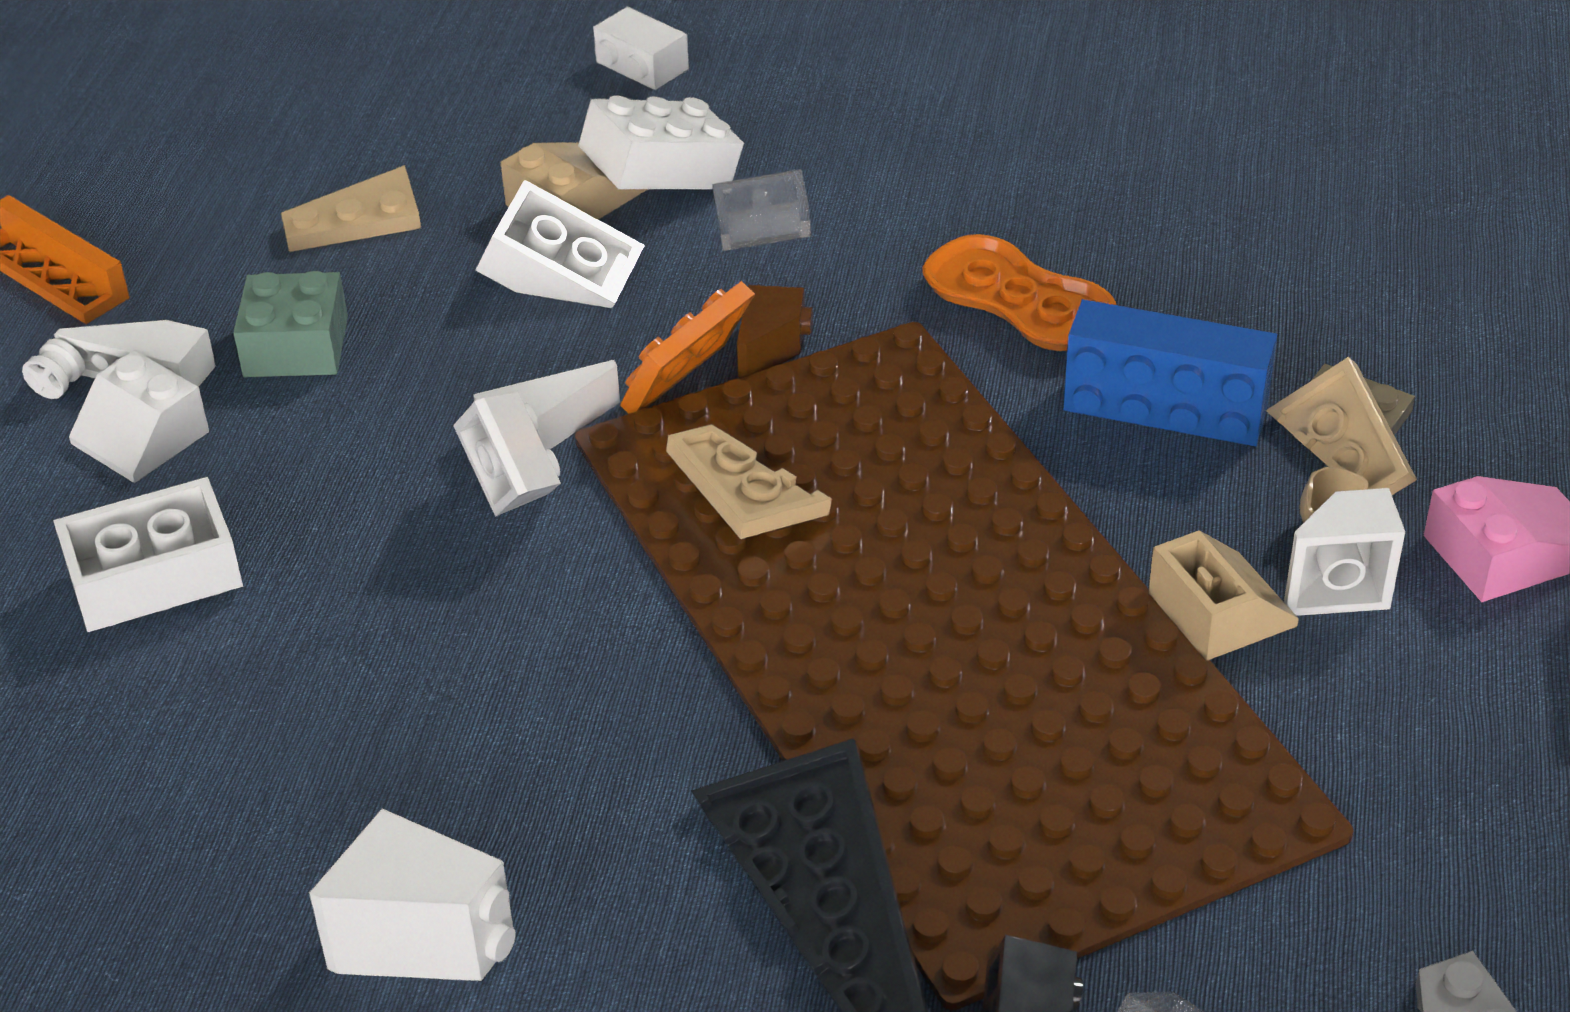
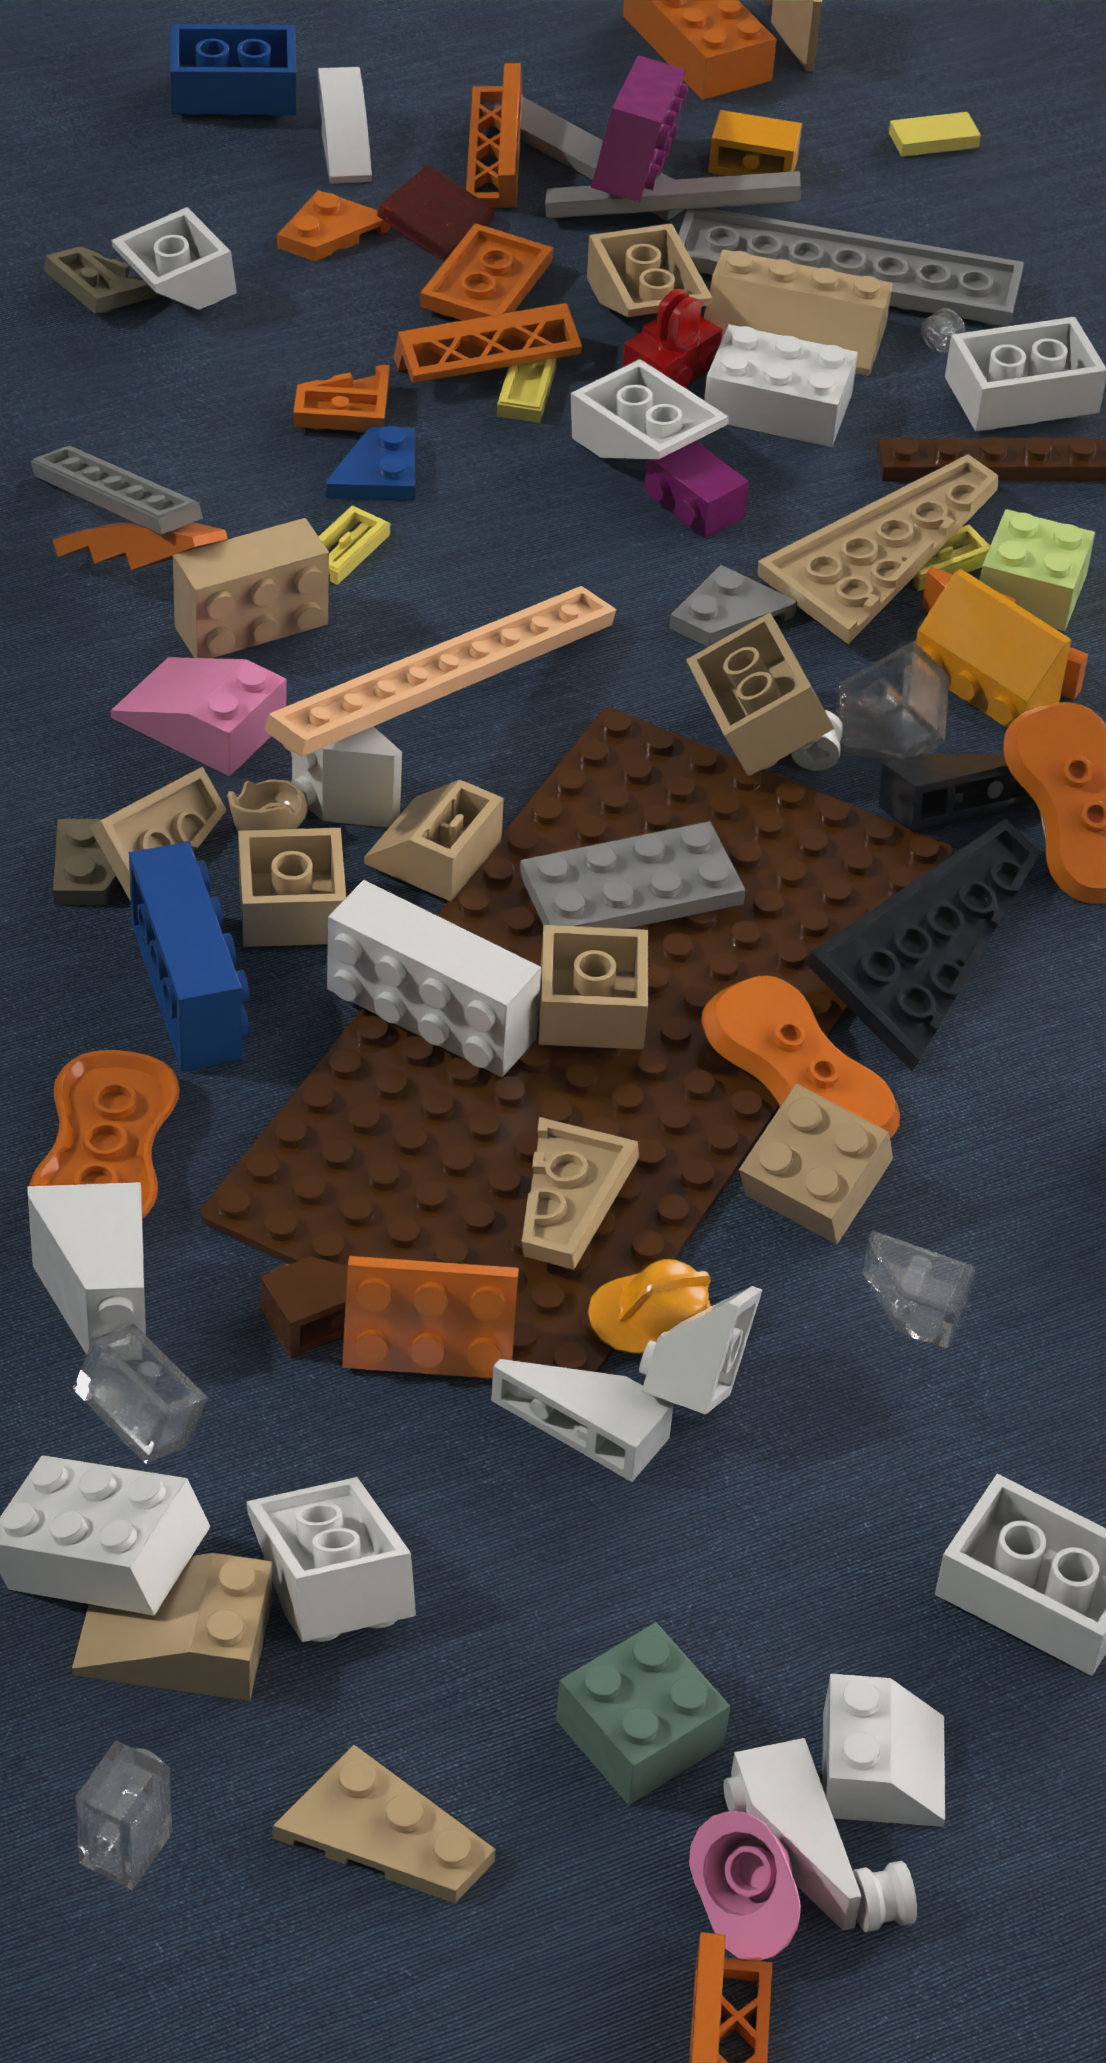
camera: 130 degrees left, 5 degrees up
(135, 307) = (745, 1884): none -> bright pink piece
(460, 92) = (124, 1814): none -> clear brick
(462, 645) = (918, 1287): none -> clear slope
(598, 497) = (646, 1304): none -> light orange piece
(627, 628) = (816, 1163): none -> tan brick
(799, 697) = (776, 1038): none -> orange plate
(882, 220) = (90, 1254): none -> white slope
(932, 573) = (593, 987): none -> tan brick
(1014, 471) = (433, 978): none -> white brick
(1066, 702) = (634, 880): none -> light grey plate
(1178, 959) = (823, 752): none -> white wheel
(1214, 472) = (289, 885): none -> tan brick
(1247, 897) = (759, 694): none -> tan brick
(1425, 658) = (437, 671): none -> light nougat plate

